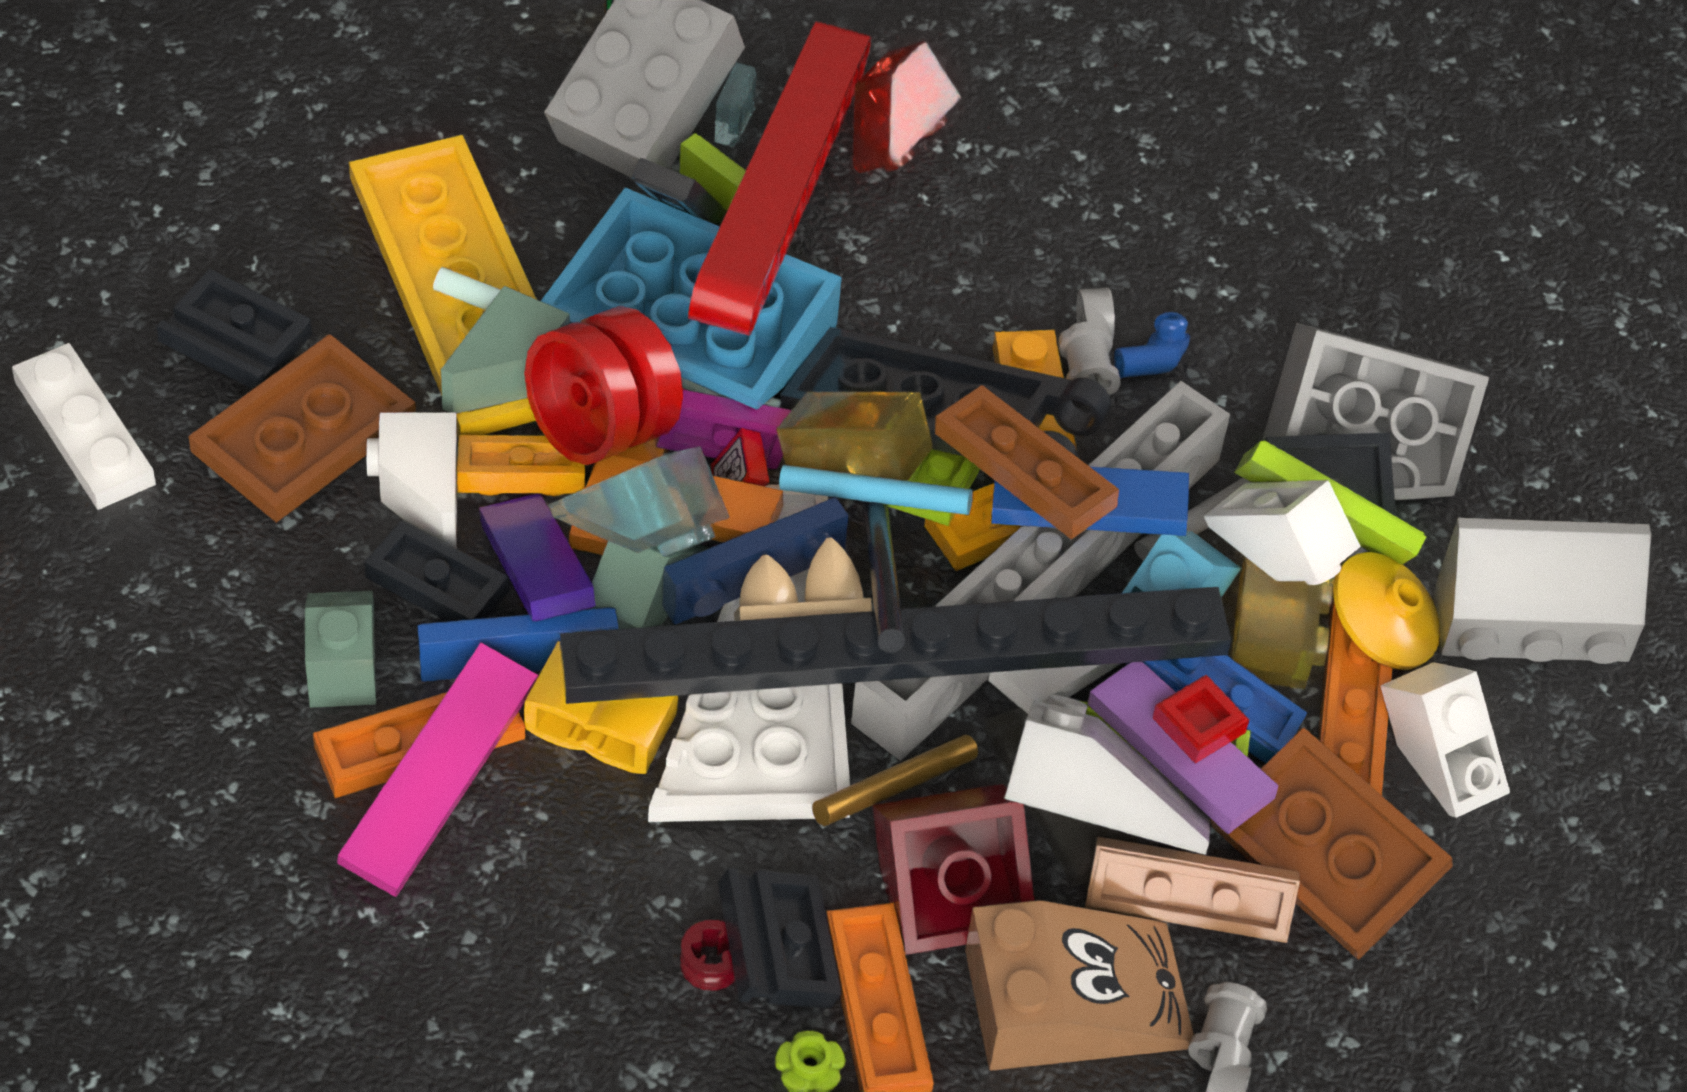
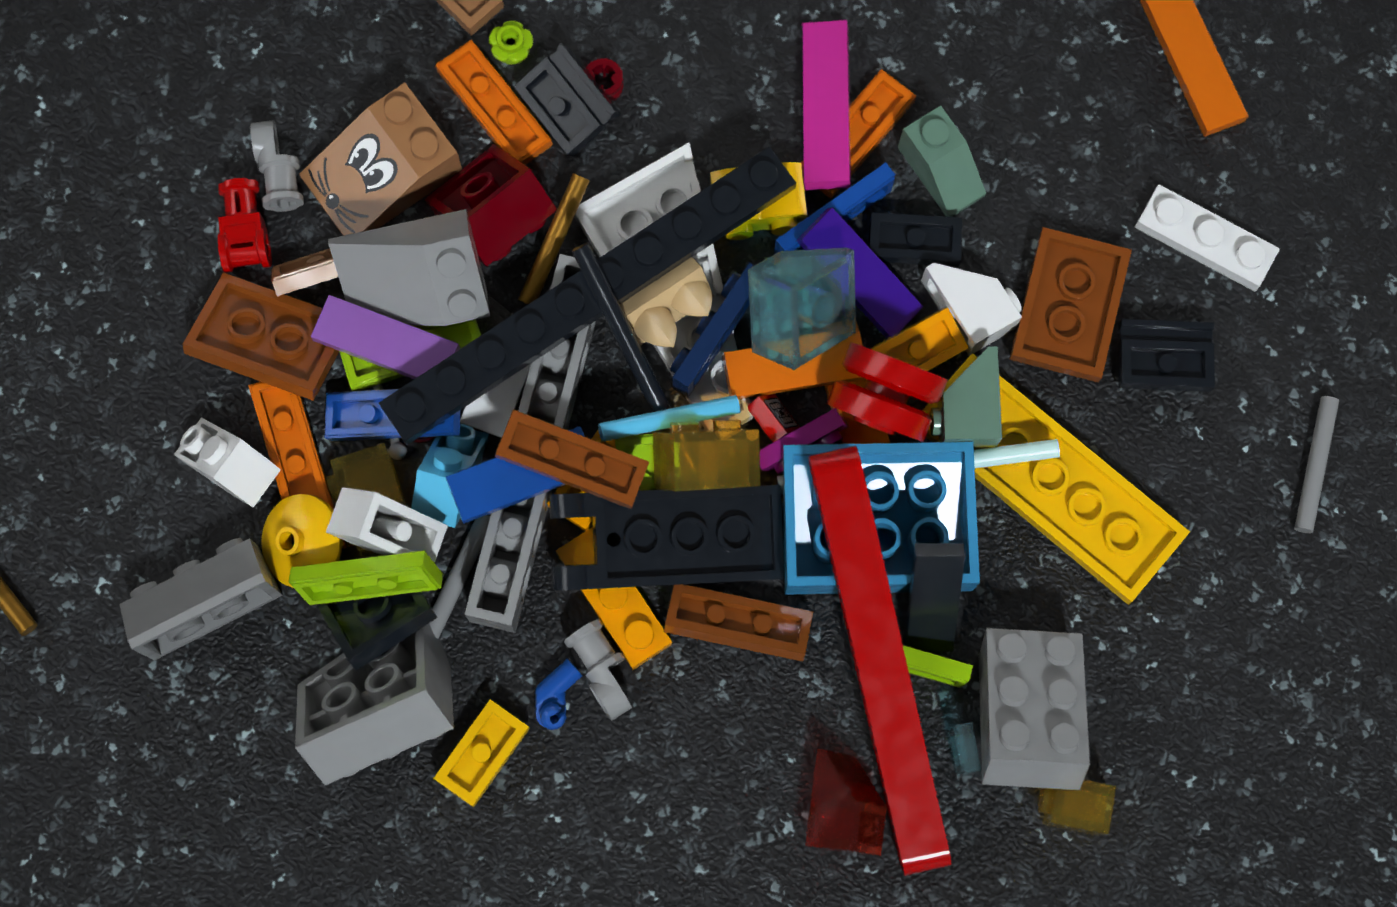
camera: 155 degrees right, 25 degrees up
(152, 172) = (1316, 464): none -> light grey bar
(906, 308) = (738, 622): none -> dark orange plate
(1200, 719) = (377, 352): red tile -> none
(1263, 331) = (481, 753): none -> yellow plate
(1306, 993) = (242, 230): none -> red connector

